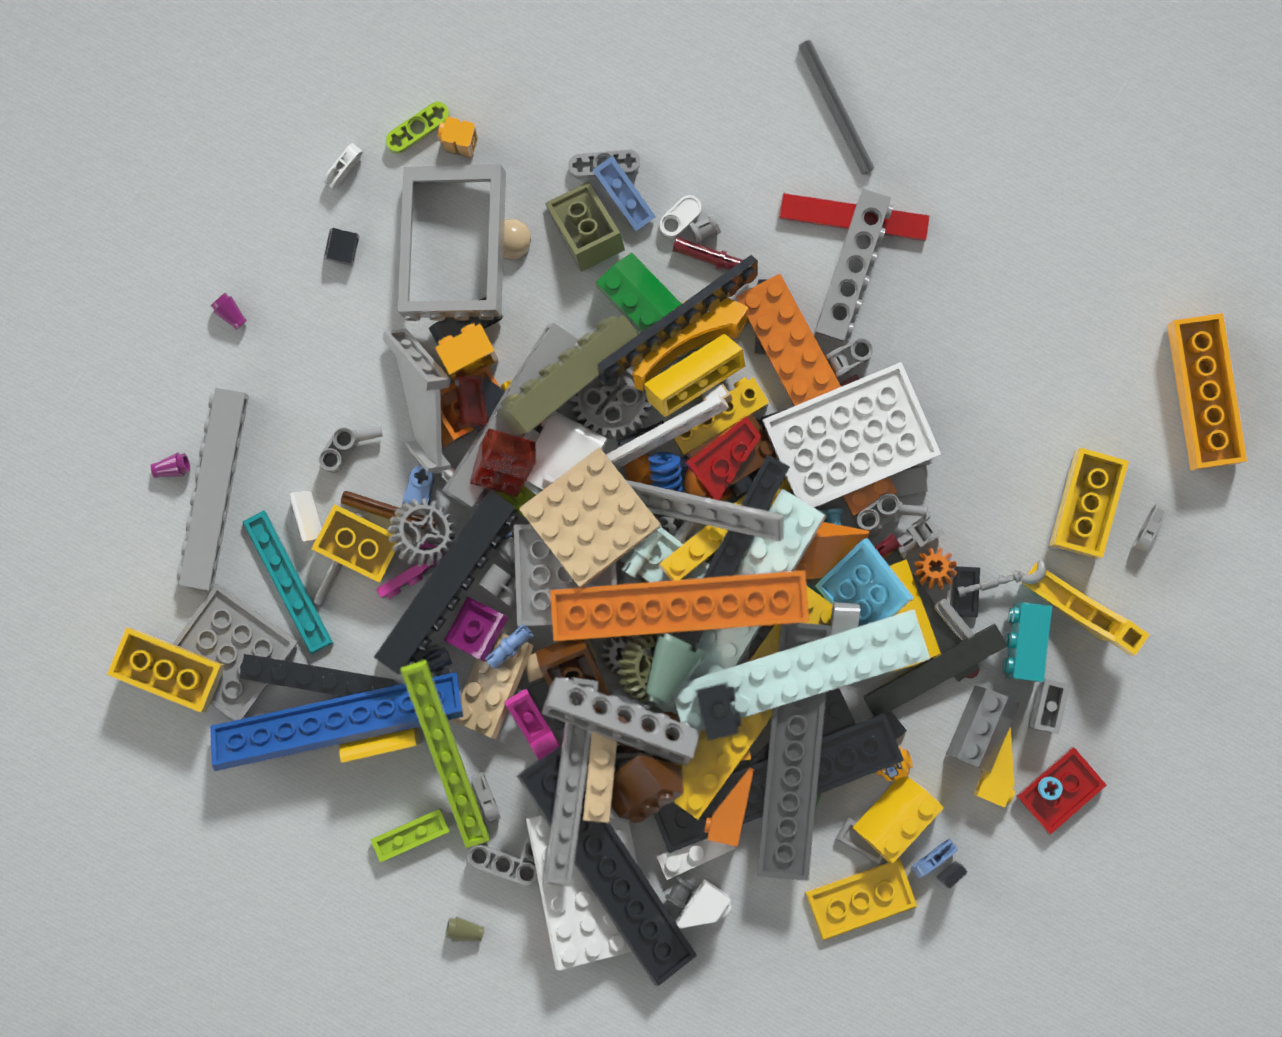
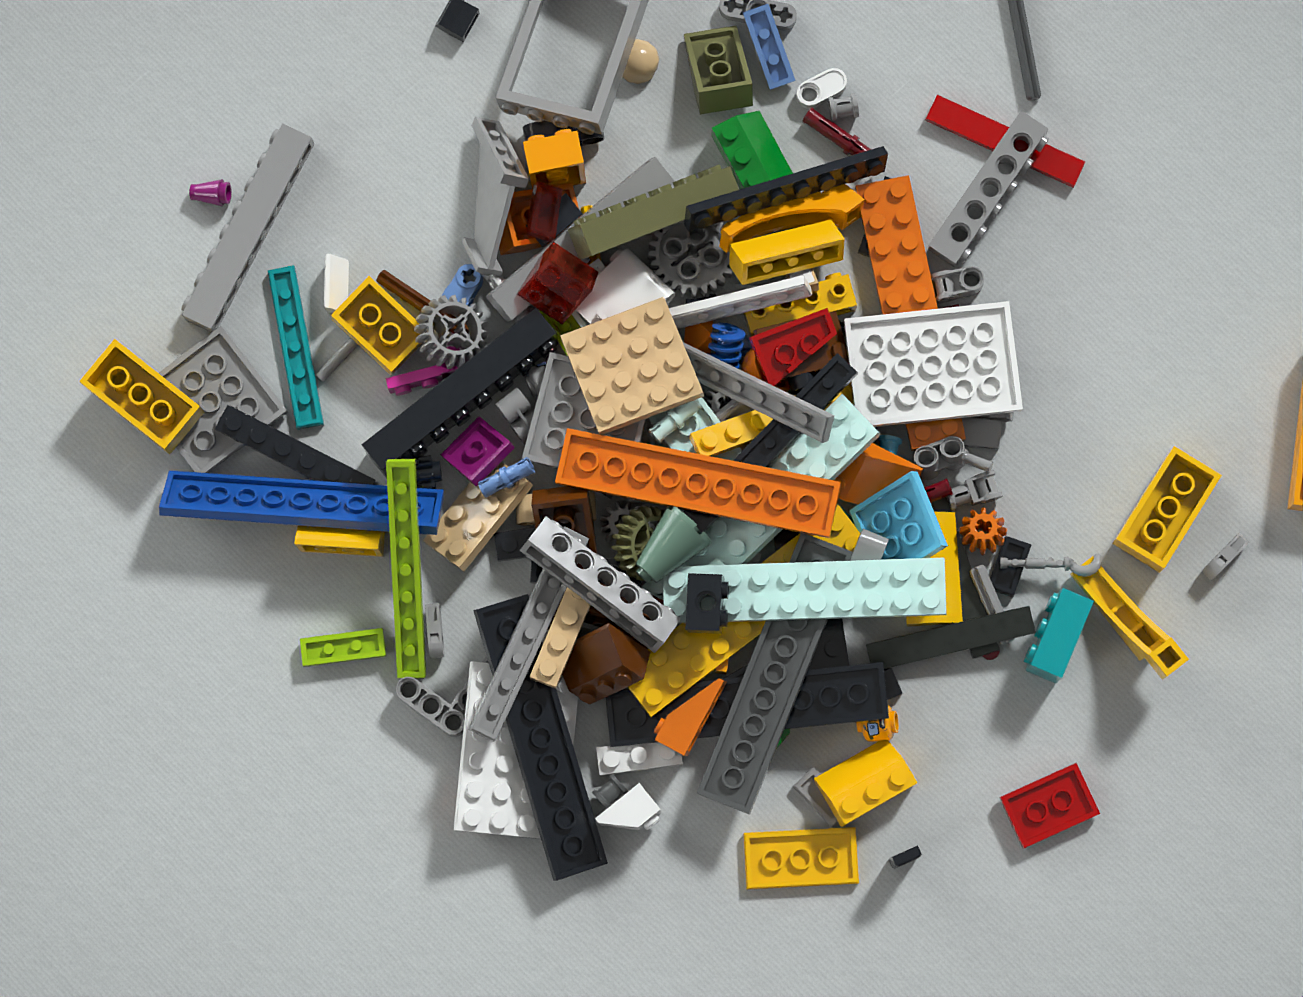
camera: 25 degrees right, 5 degrees down
(227, 309) = (320, 50): magenta cone -> none
(342, 452) = (394, 228): light grey beam -> none
(463, 930) = (368, 764): olive cone -> none
(532, 723) = (505, 563): dark pink plate -> none
(934, 858) = (891, 837): medium blue piece -> none
(982, 728) = (984, 713): dark grey slope -> none
(999, 784) = (986, 769): yellow slope -> none
(1043, 784) = (1044, 803): medium azure bush -> none
(1049, 706) = (1062, 710): light grey brick -> none

